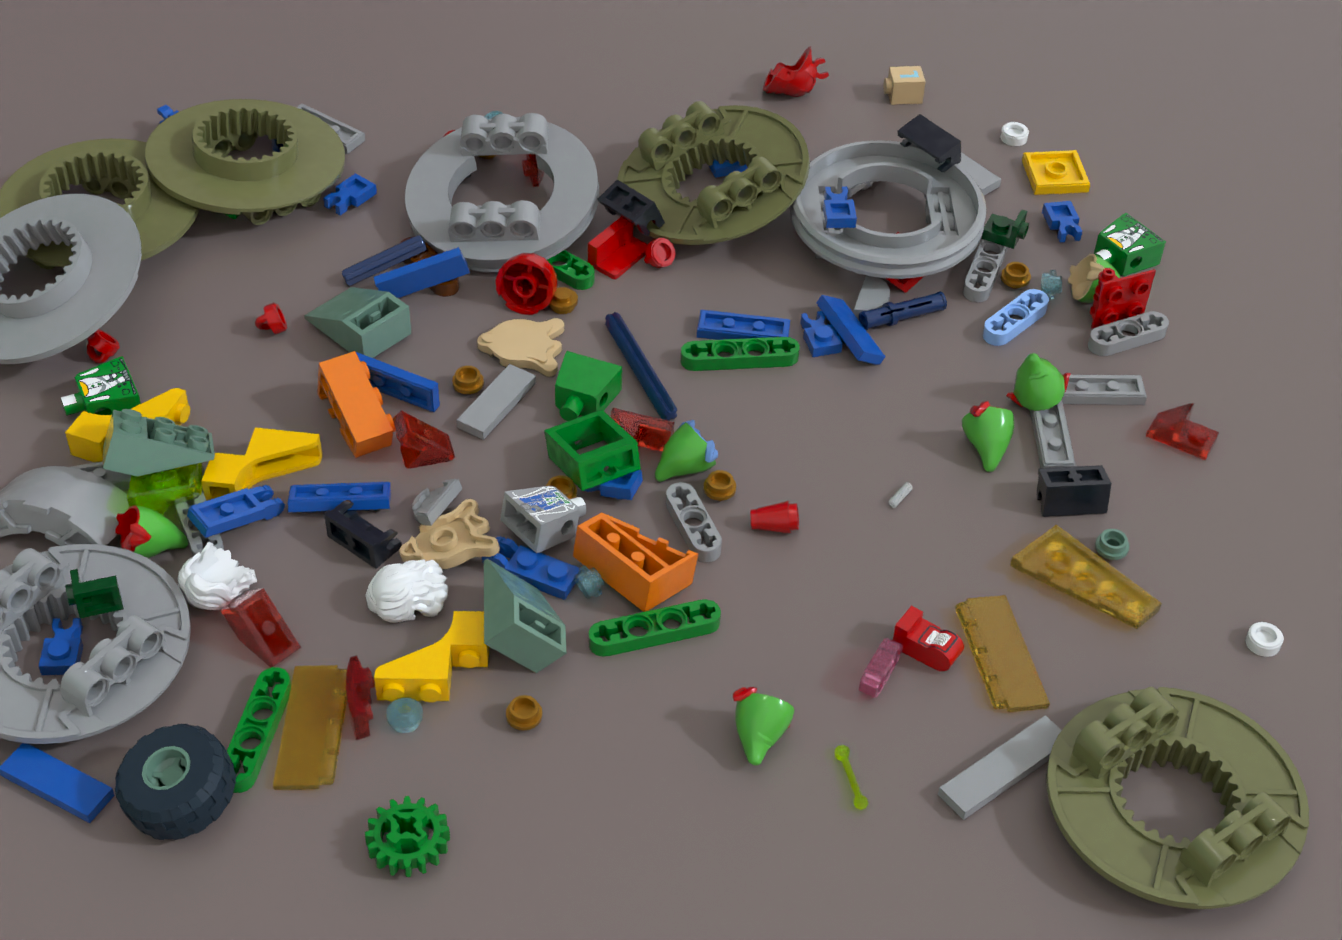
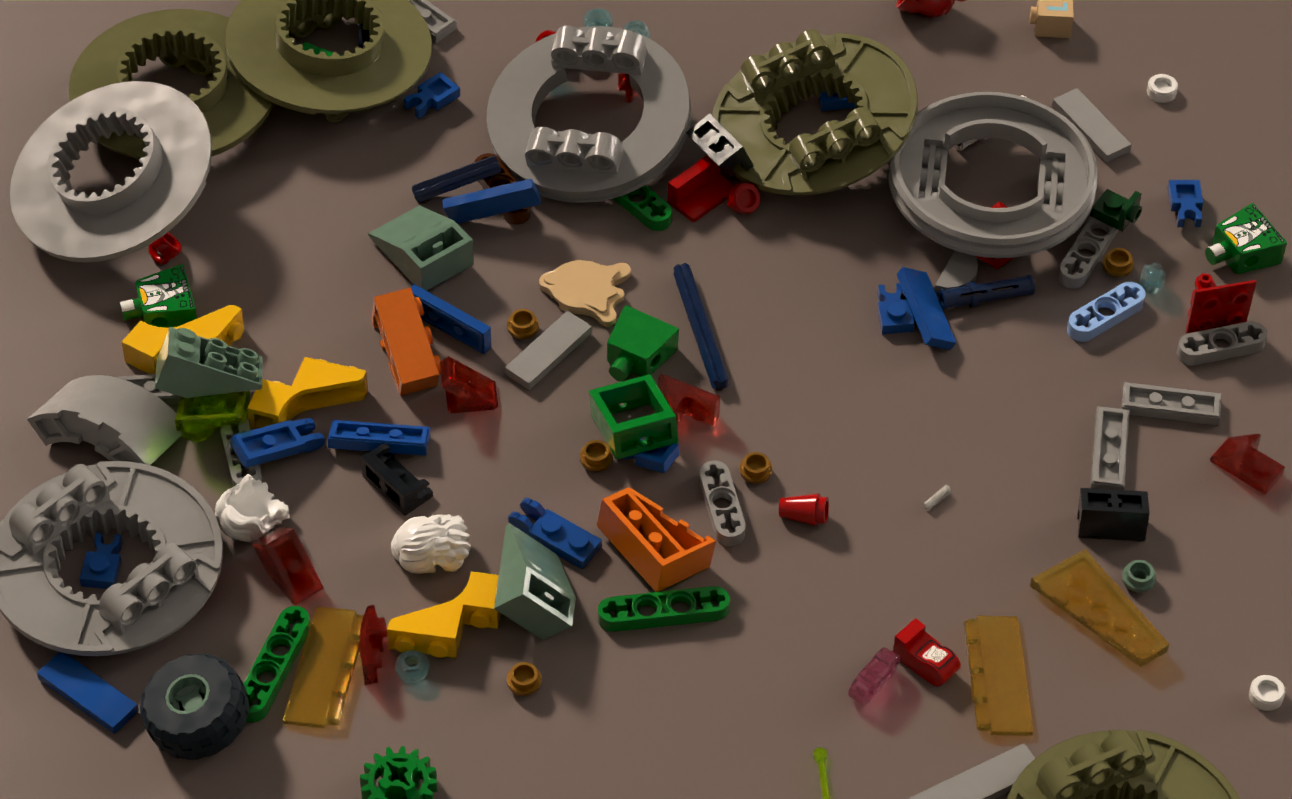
camera: 10 degrees right, 5 degrees up
(94, 596) = (136, 518): dark green bracket -> none
(148, 532) = (191, 456): bright green hat -> none
(272, 319) = (336, 235): red tile -> none
(430, 505) = (467, 455): light grey tile -> none
(452, 538) = (481, 494): tan tile -> none
(526, 283) = (598, 221): red cylinder -> none
(541, 516) = (572, 481): light grey torso -> none
(564, 300) = (634, 242): pearl gold plate -> none
(589, 582) = (607, 555): clear light blue plate -> none
(686, 453) = (726, 430): bright green hat -> none
(727, 325) = (816, 294): blue tile -> none
(740, 357) = (805, 328): green beam -> none
(760, 721) = (744, 716): bright green hat -> none
(838, 210) = (934, 175): blue plate -> none
(932, 140) = (1052, 103): black hinge -> none
(989, 432) = (1041, 442): bright green hat -> none
(1038, 384) = (1106, 394): bright green hat -> none
(1055, 172) = (1195, 140): yellow tile -> none
(1085, 277) = (1190, 269): tan hat -> none

